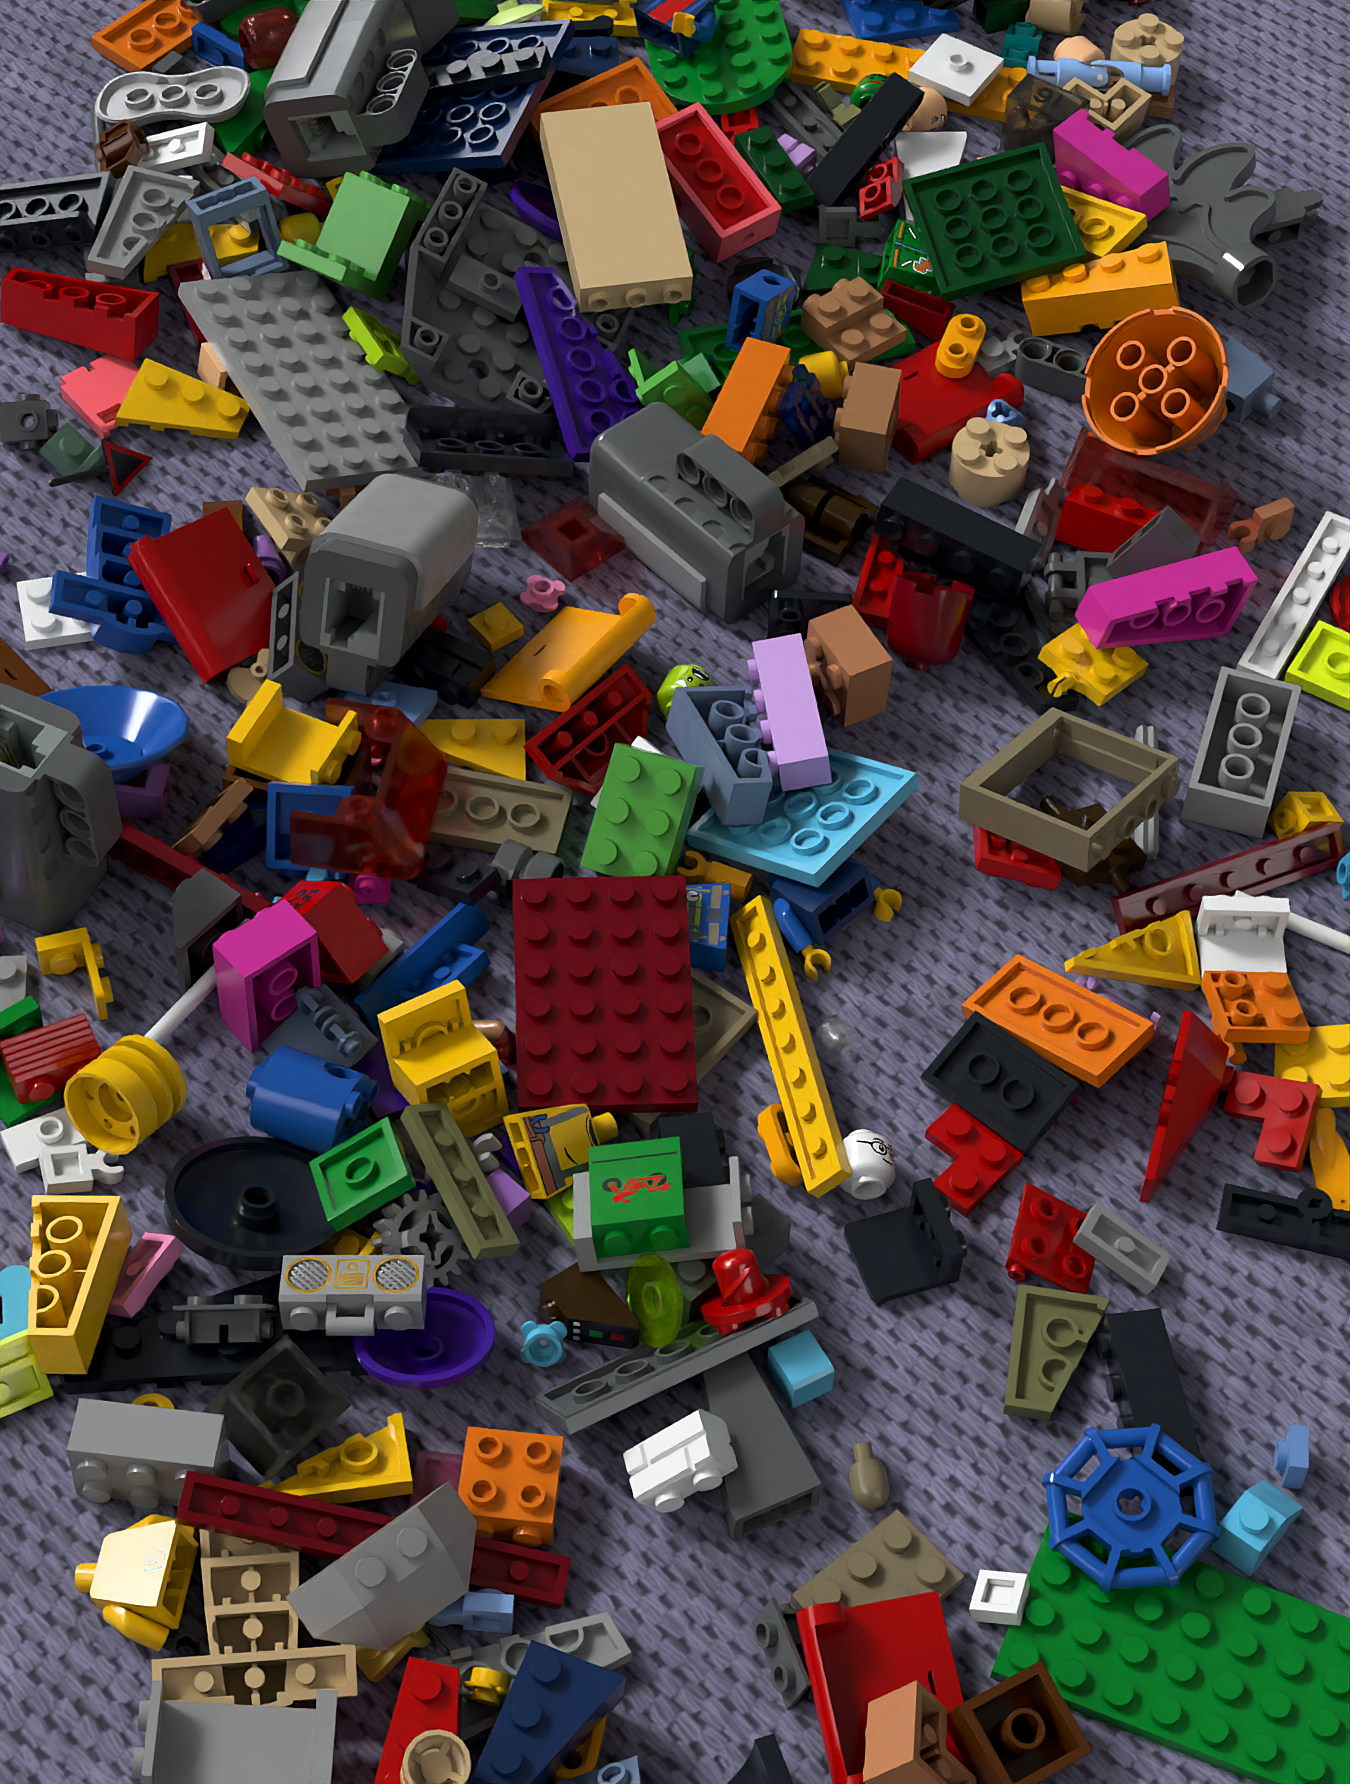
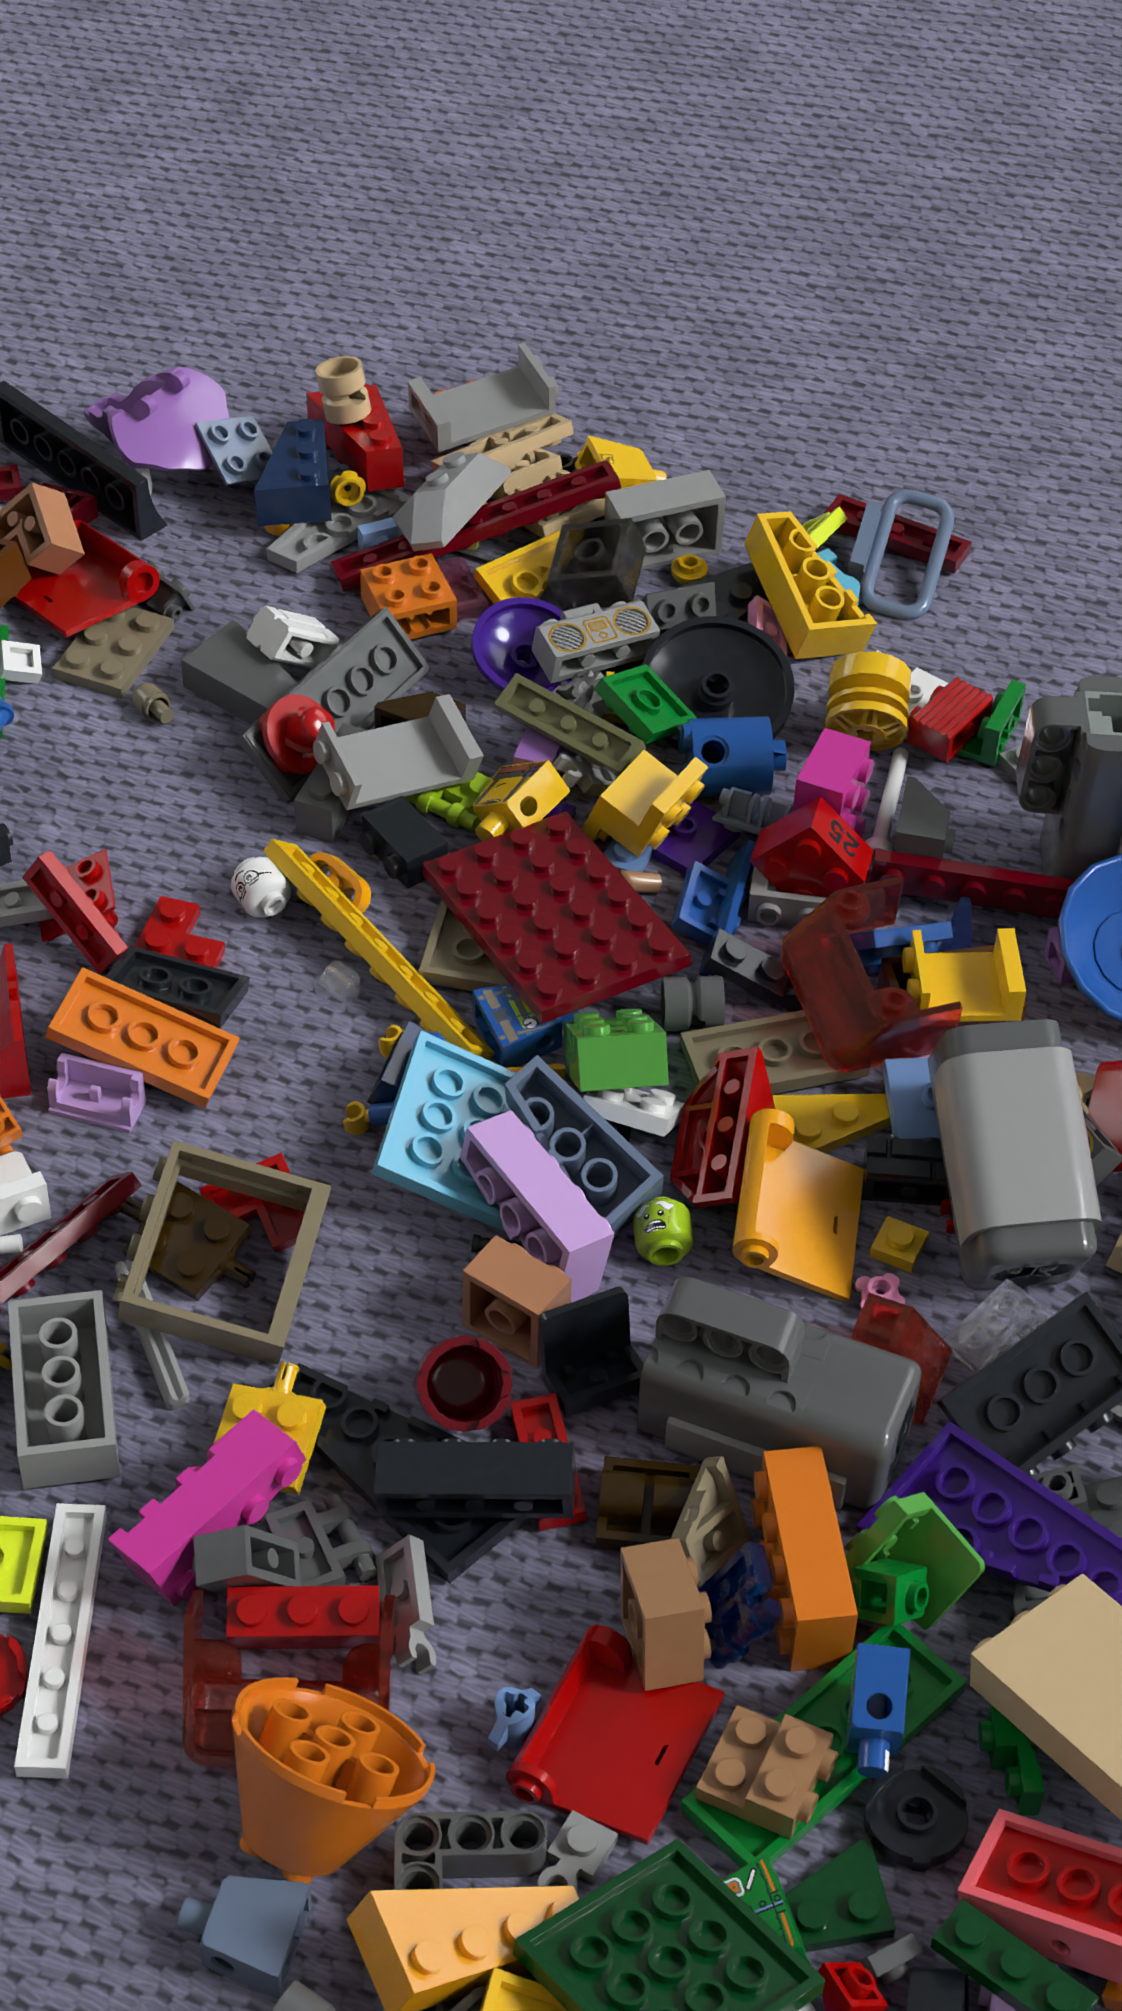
camera: 155 degrees right, 5 degrees down
(73, 949) = (993, 811): yellow bracket -> none
(207, 825) = (983, 910): medium nougat plate -> none
(546, 1355) = (444, 687): medium azure plate -> none
(637, 1197) = (425, 751): green panel -> none
(655, 1299) = (364, 708): clear neon green dish -> none
(800, 1369) = (224, 743): medium azure piece -> none
(828, 371) = (762, 1683): yellow head -> none
(908, 1246) = (197, 850): black bracket -> none
(918, 308) = (707, 1829): dark red slope -> none
(960, 346) = (622, 1811): light orange plate -> none
(989, 462) = (499, 1644): tan brick -> none
(1047, 1346) = (49, 822): olive wing -> none
(1071, 1179) = (74, 912): none -> red plate
(1153, 956) = (80, 1143): yellow wing -> none
(1267, 523) = (135, 1721): nougat plate -> none

